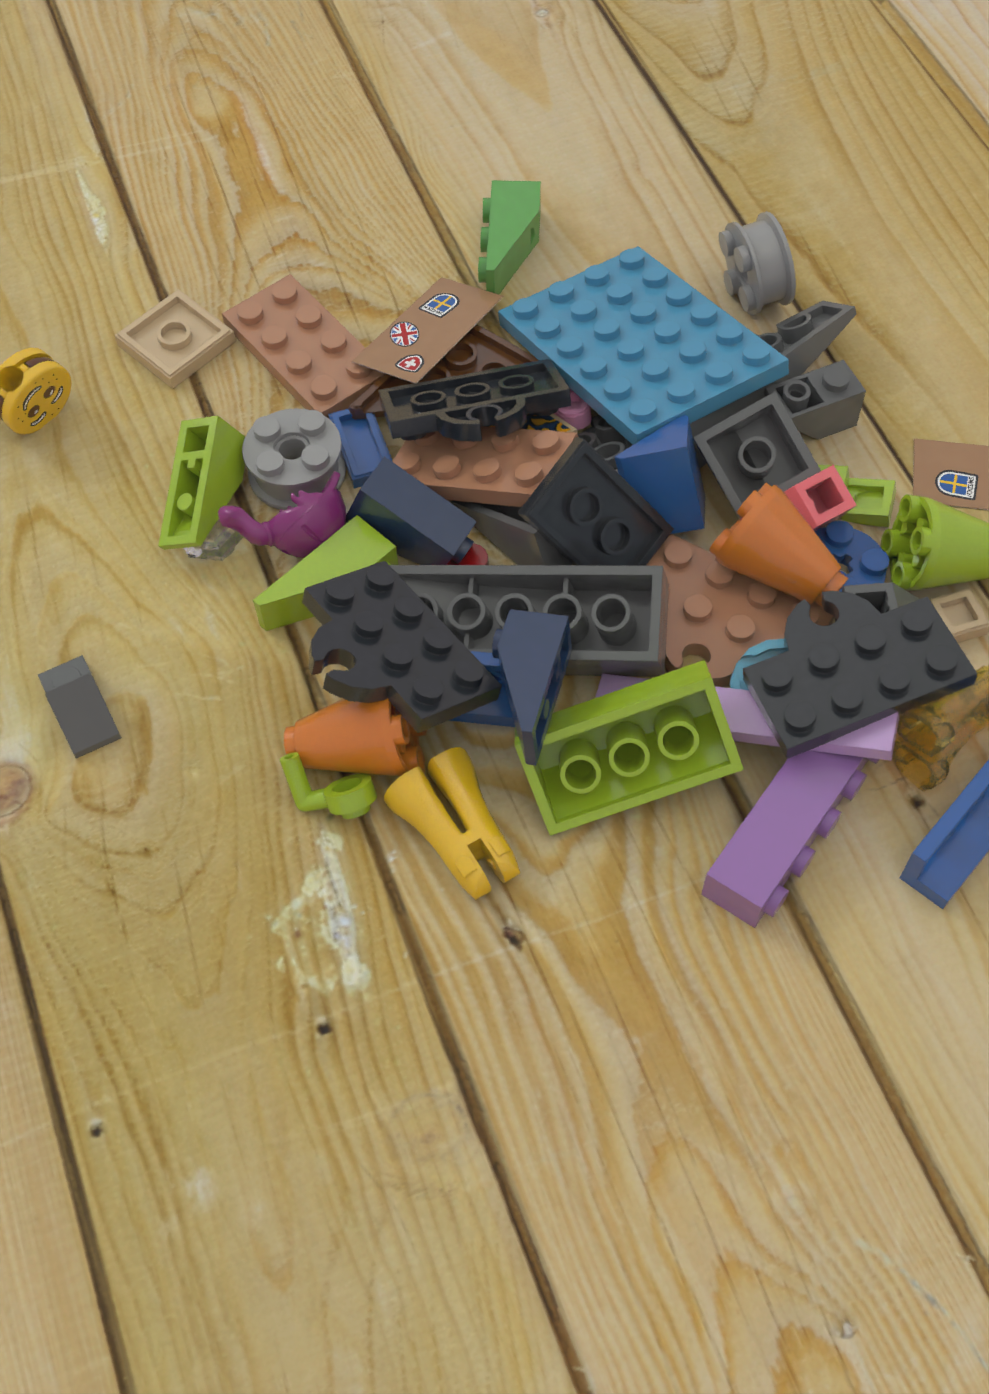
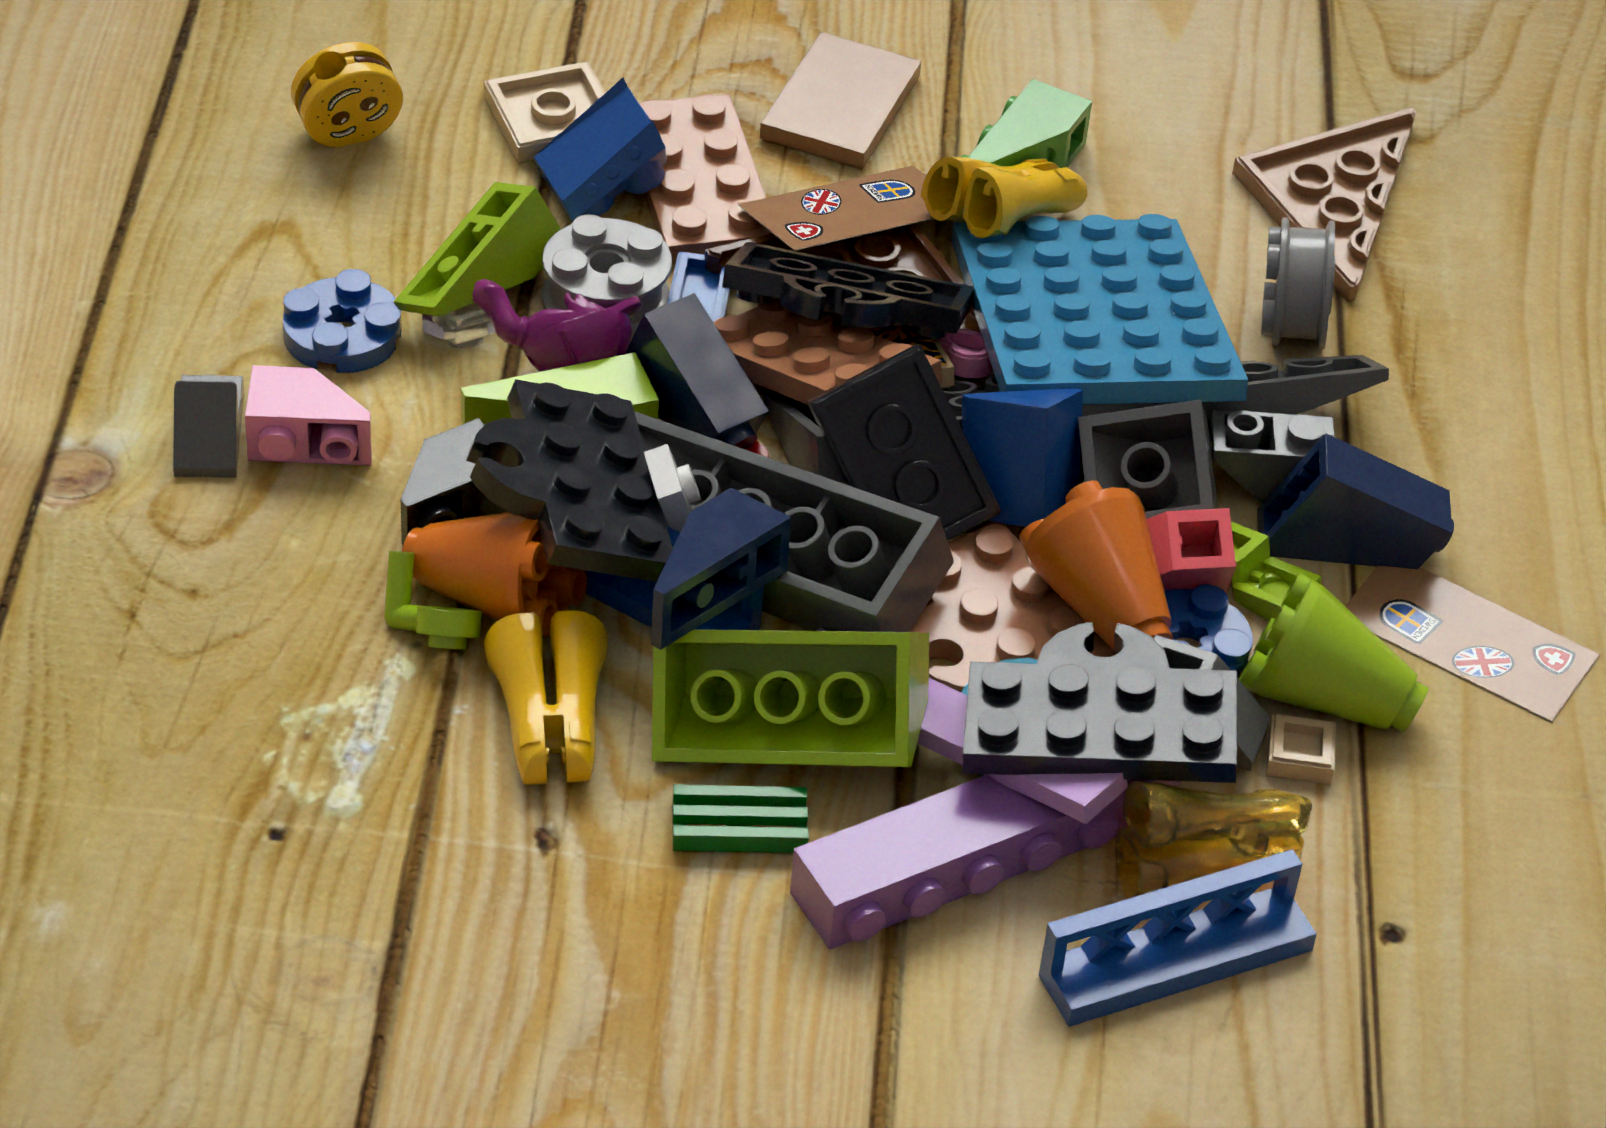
camera: 20 degrees right, 15 degrees down
(120, 554) = (350, 297): none -> plate
(149, 671) = (304, 419): none -> bright pink slope
(236, 362) = (603, 155): none -> blue slope
(285, 677) = (441, 482): none -> slope
(364, 246) = (840, 100): none -> tile
(460, 620) = (673, 485): none -> white plate
(521, 279) = (998, 196): none -> yellow piece
(674, 835) = (739, 810): none -> green tile
(712, 175) = (1333, 177): none -> medium nougat tile
(888, 422) = (1355, 510): none -> dark blue slope

